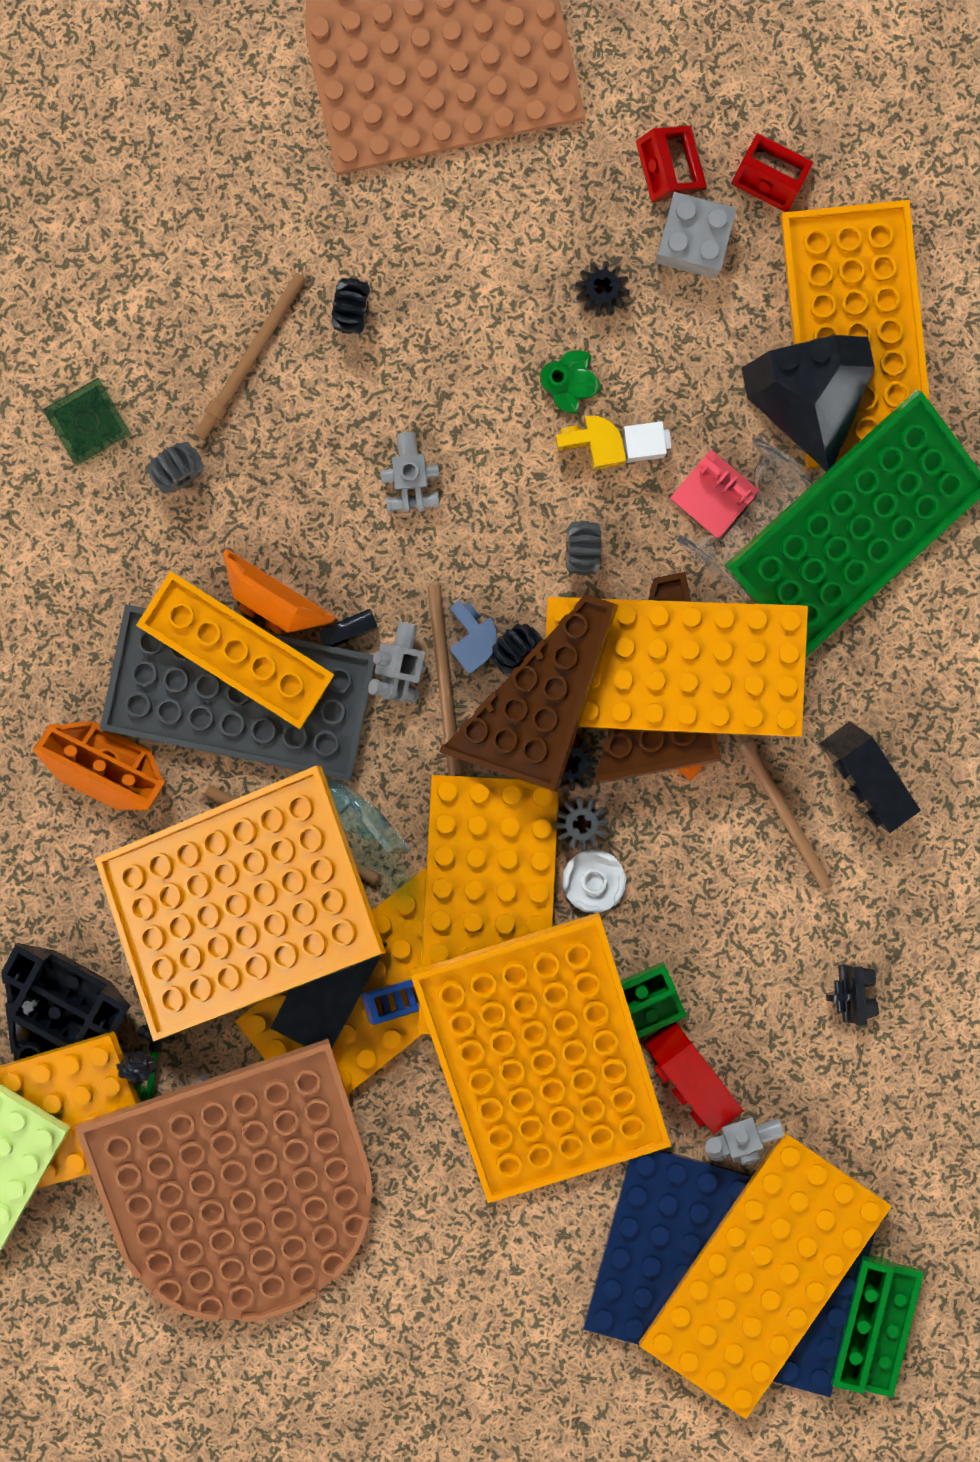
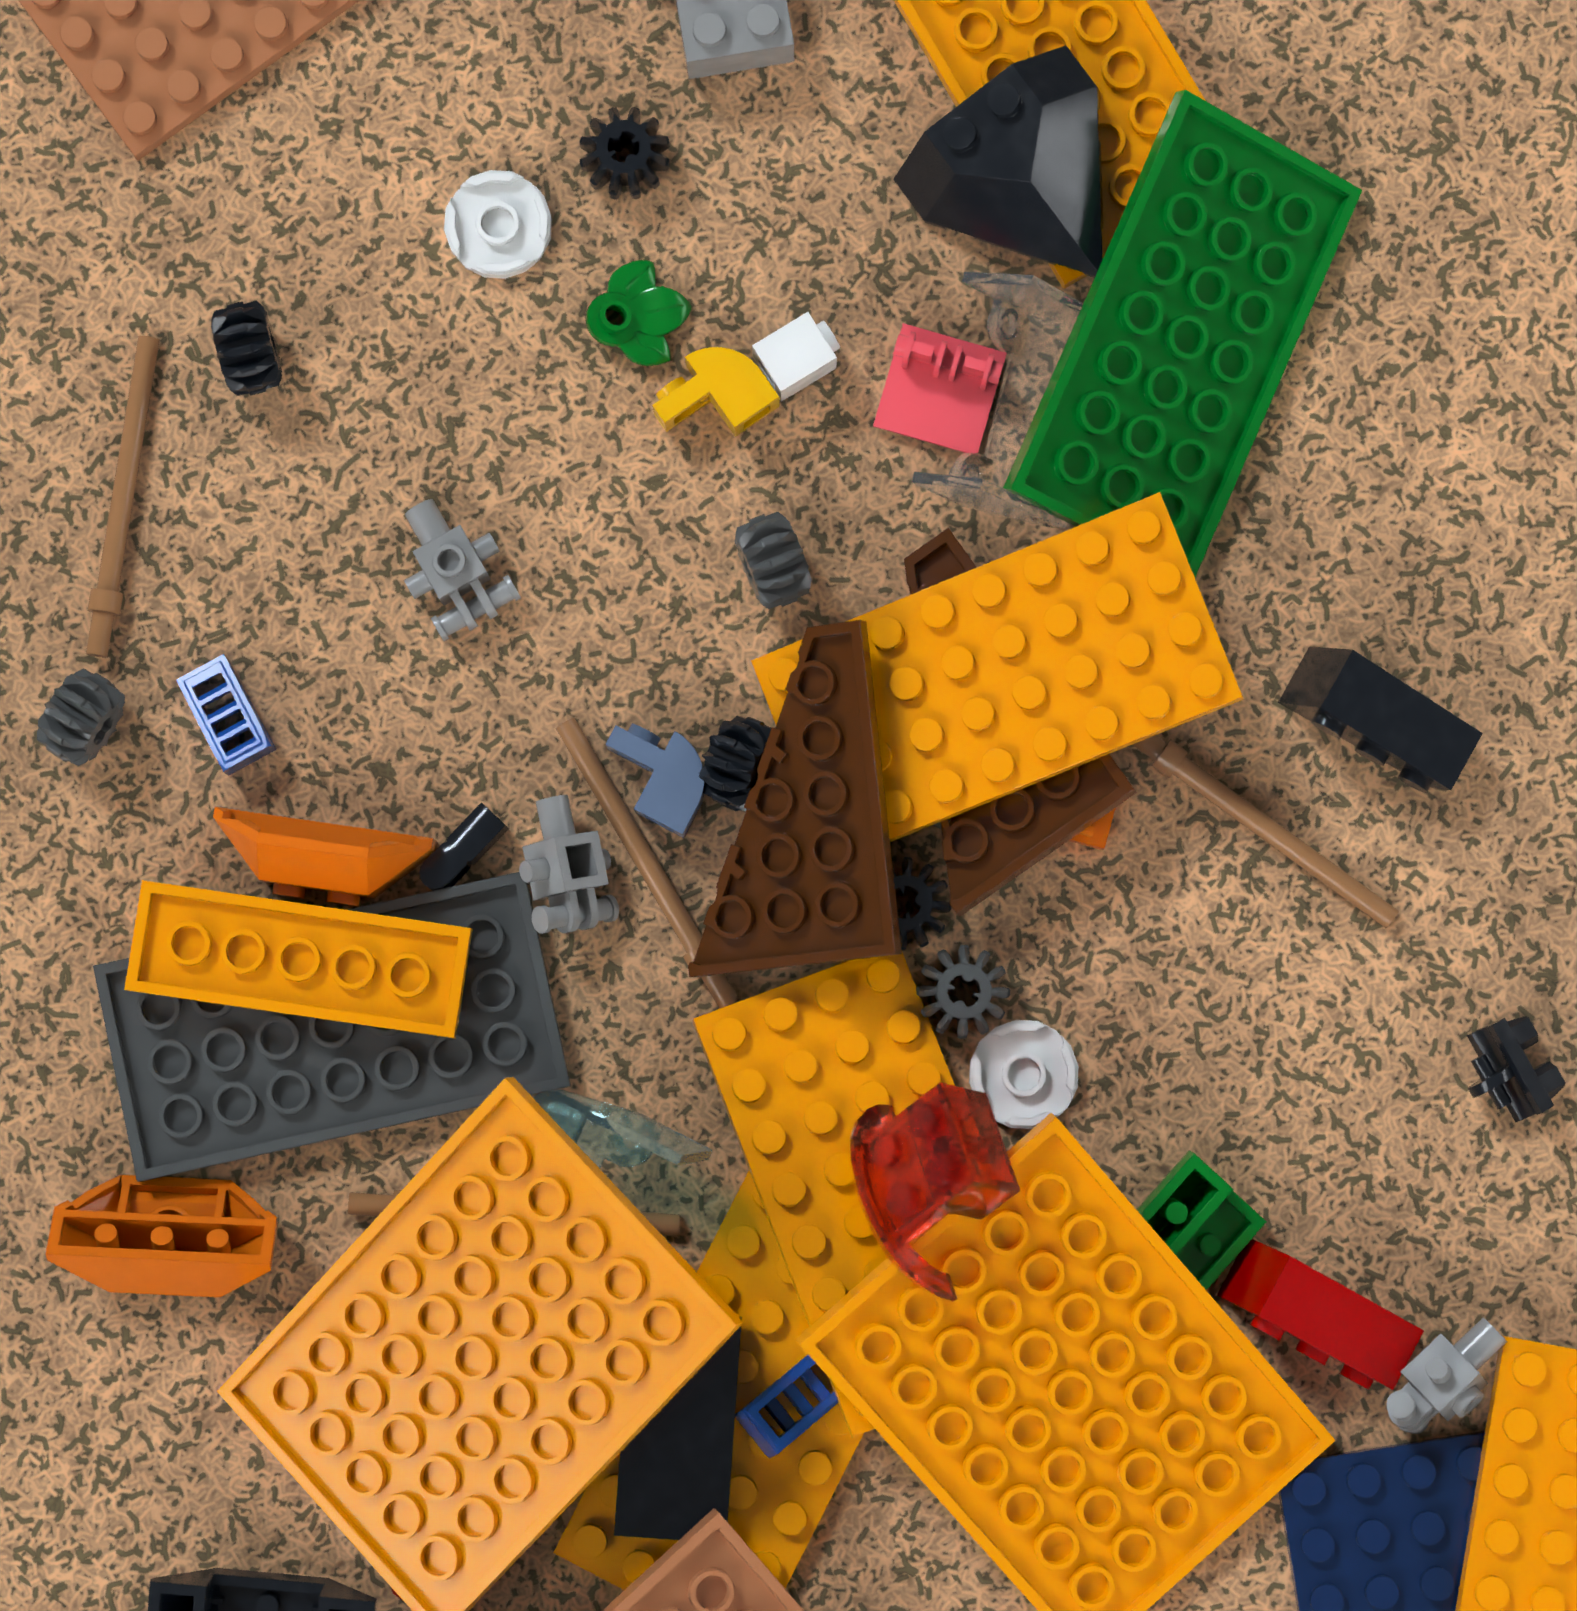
camera: 25 degrees left, 5 degrees down
(255, 525) = (248, 751): none -> slope
(507, 301) = (490, 239): none -> white tile
(519, 912) = (927, 1164): none -> clear red piece

